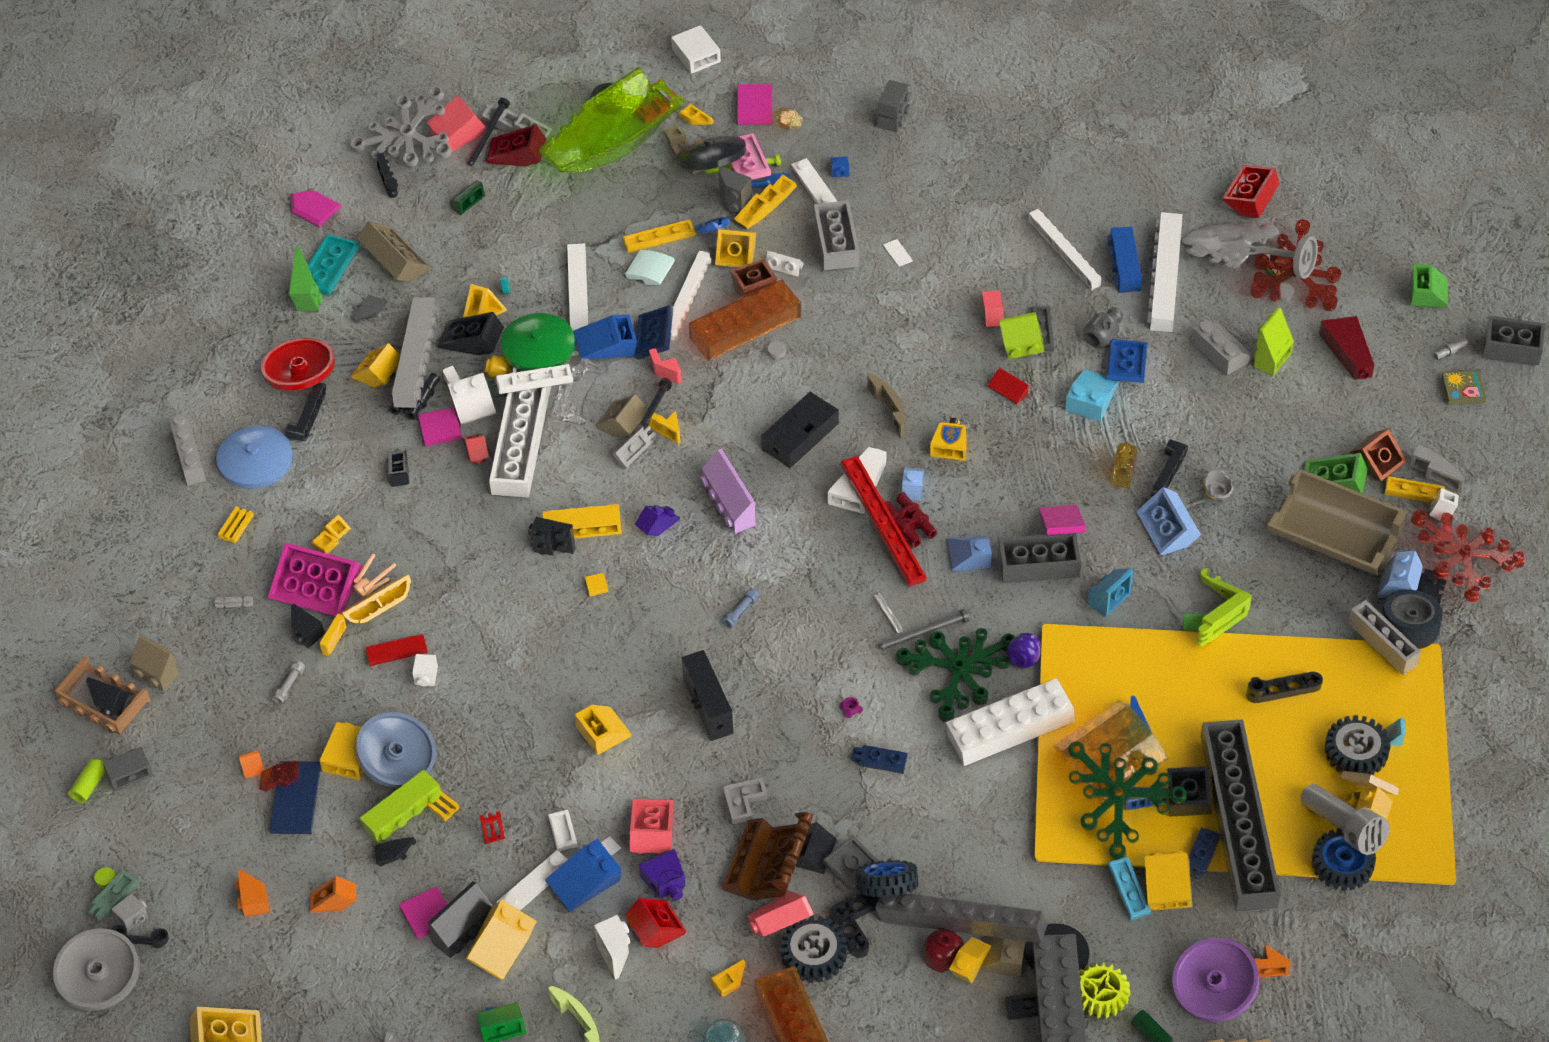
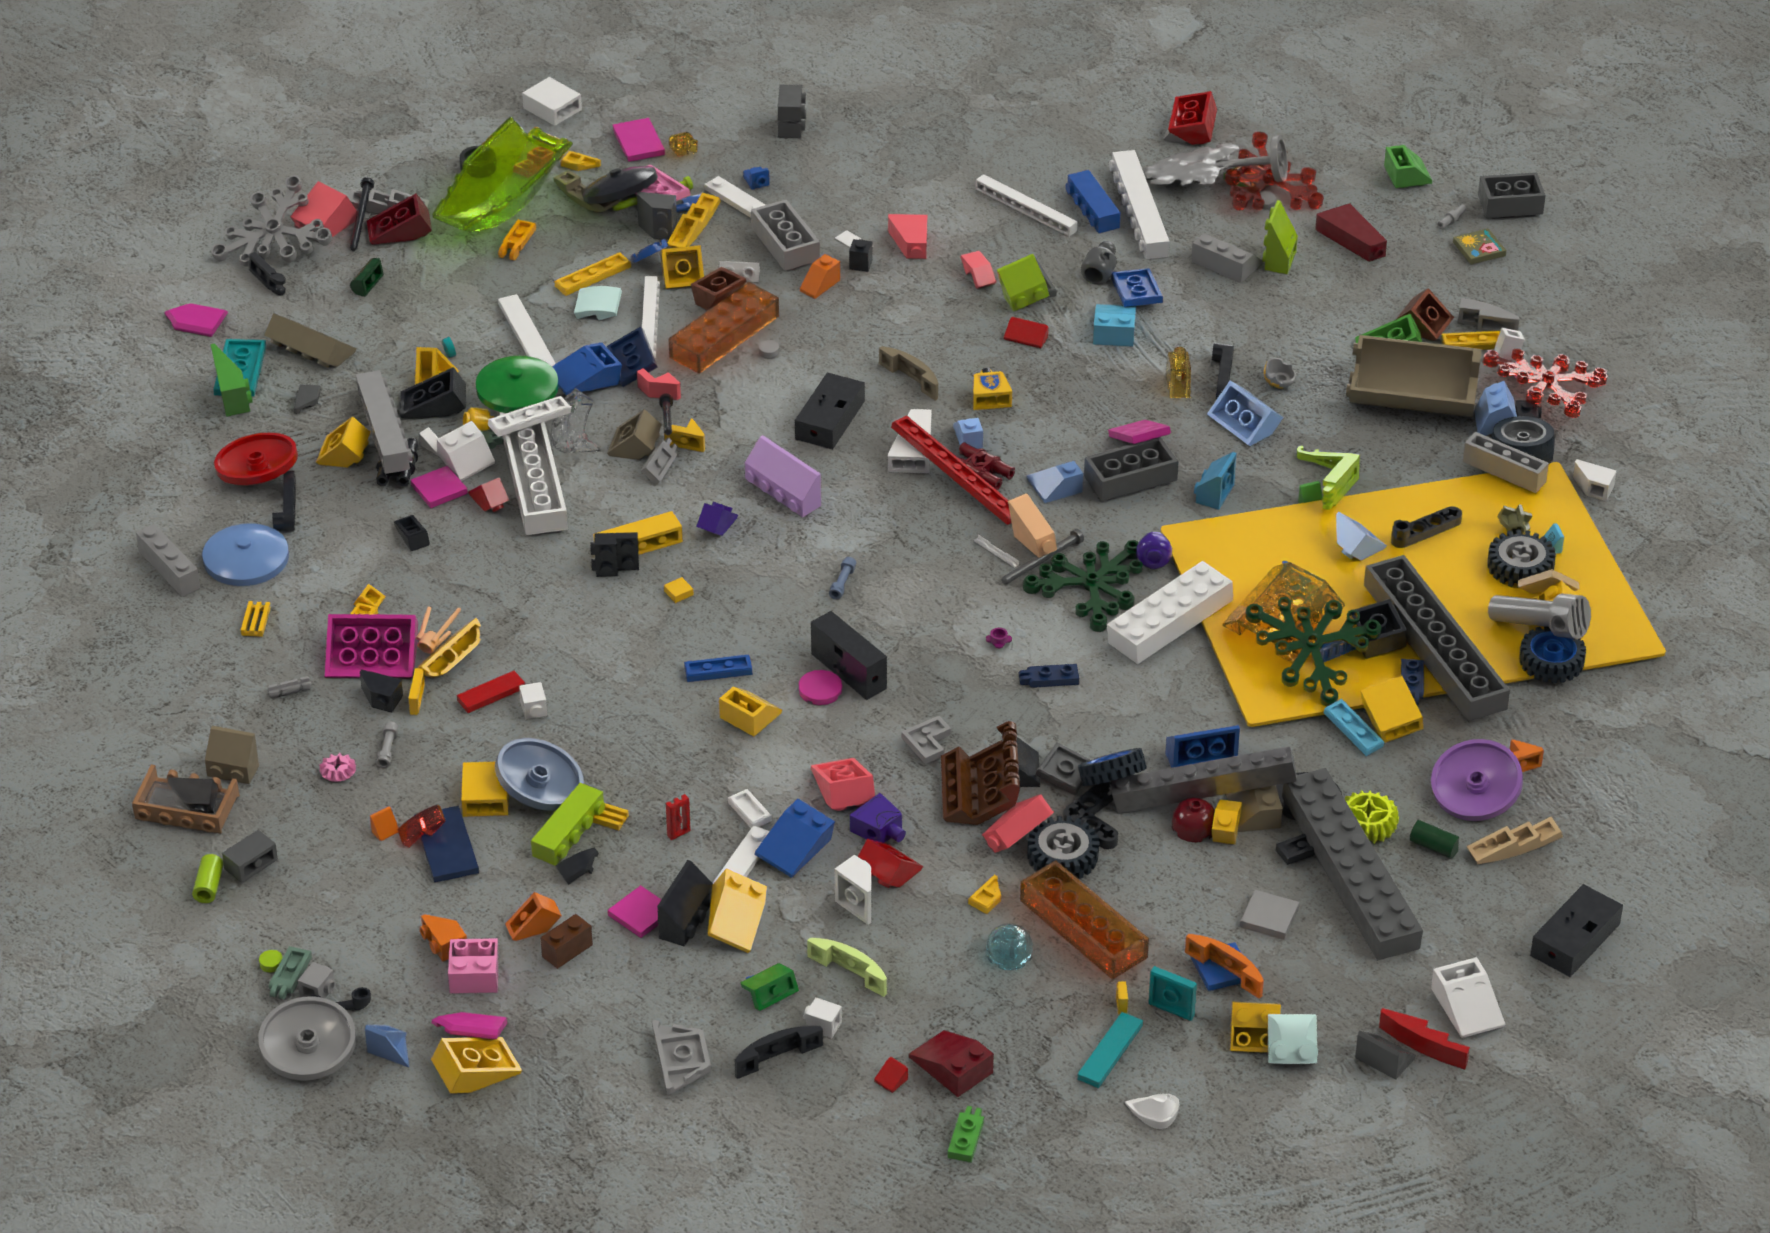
camera: 20 degrees left, 10 degrees down
(164, 988) = (387, 1043): none -> medium blue slope
(237, 993) = (472, 1024): none -> dark pink tile
(242, 700) = (345, 770): none -> bright pink gear
(262, 932) = (473, 966): none -> bright pink slope
(349, 928) = (566, 941): none -> reddish brown brick
(596, 675) = (718, 668): none -> blue tile
(608, 185) = (517, 238): none -> light orange hinge
(675, 718) = (820, 687): none -> dark pink tile
(851, 285) = (821, 276): none -> orange slope
(894, 271) = (860, 255): none -> black brick
(922, 599) = (1031, 527): none -> light nougat slope
(948, 258) = (909, 234): none -> coral slope
(980, 875) = (1202, 746): none -> blue slope
(1212, 684) = (1356, 539): none -> light blue slope
(1368, 703) = (1514, 519): none -> olive piece
(1466, 674) = (1594, 479): none -> white slope

